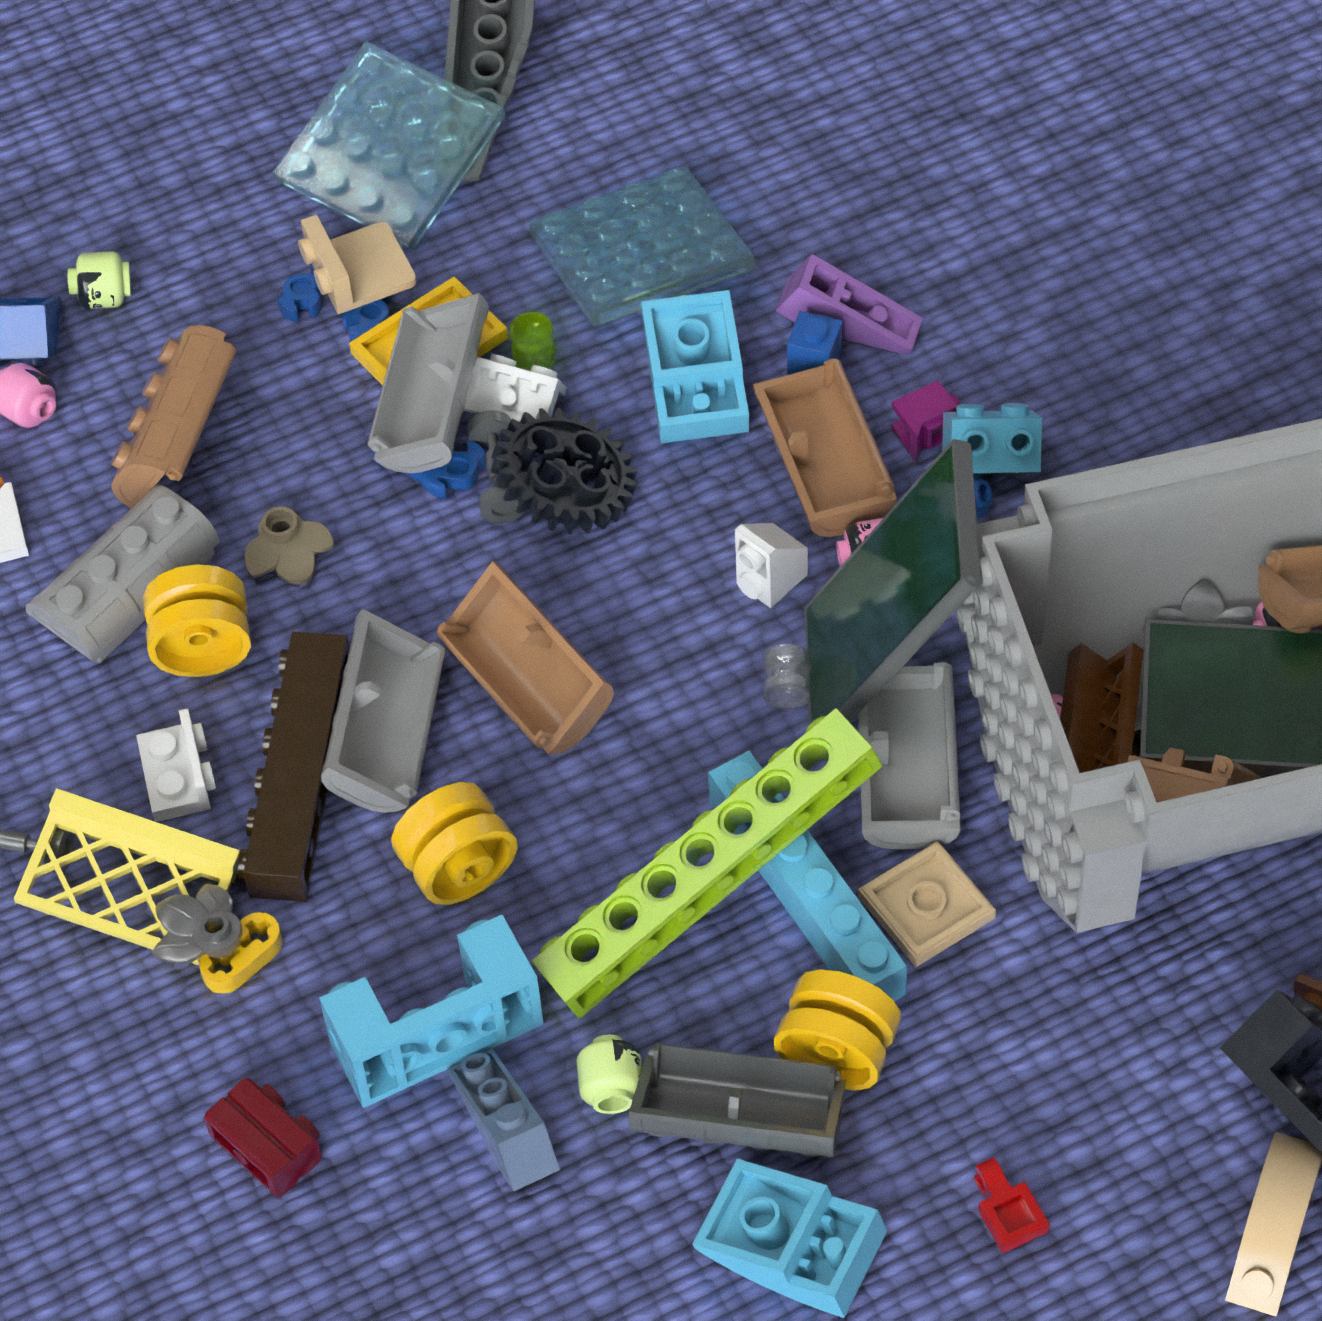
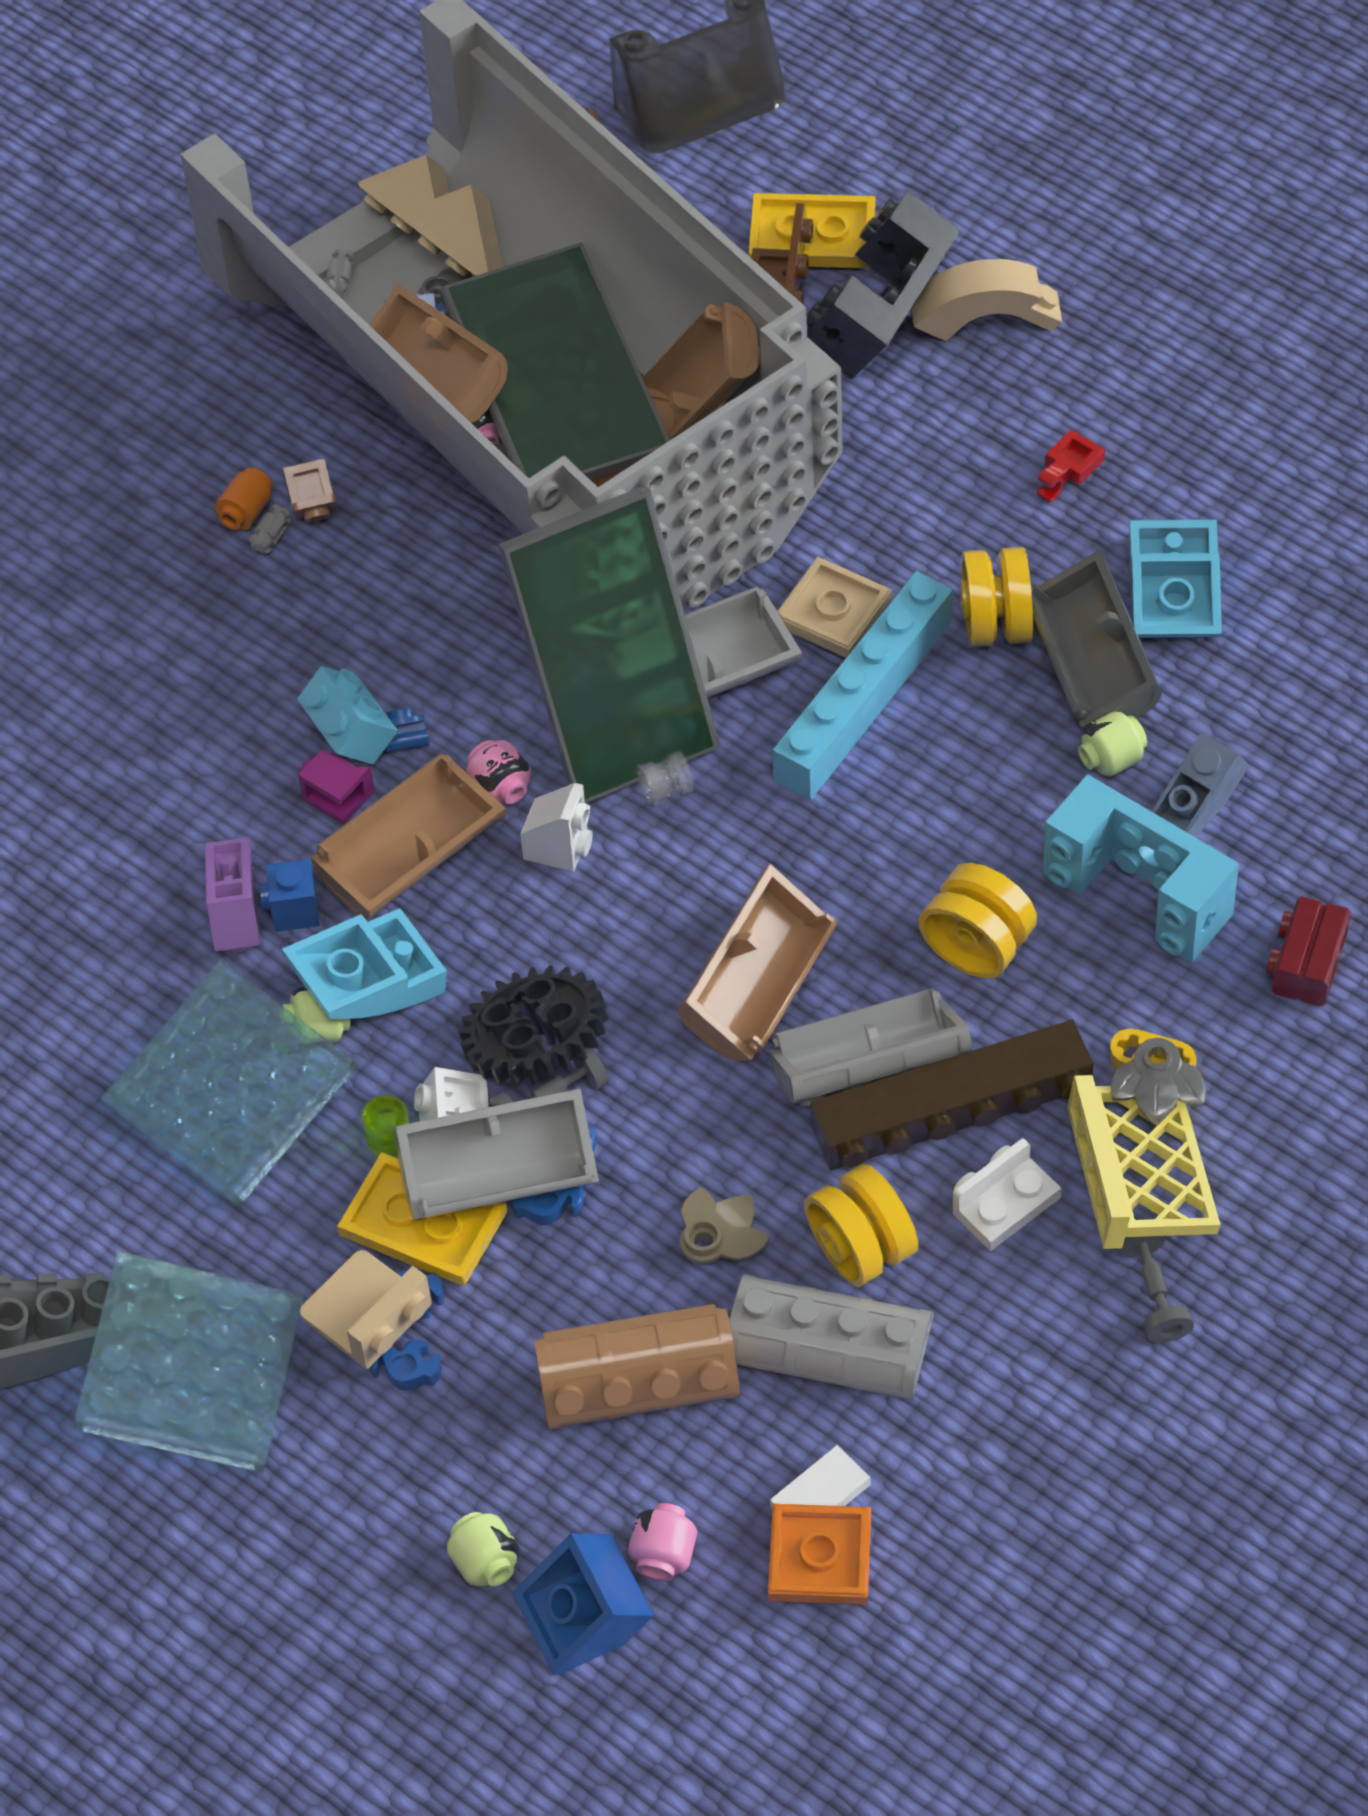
camera: 115 degrees left, 0 degrees up
(703, 887) = (897, 700): lime brick -> none

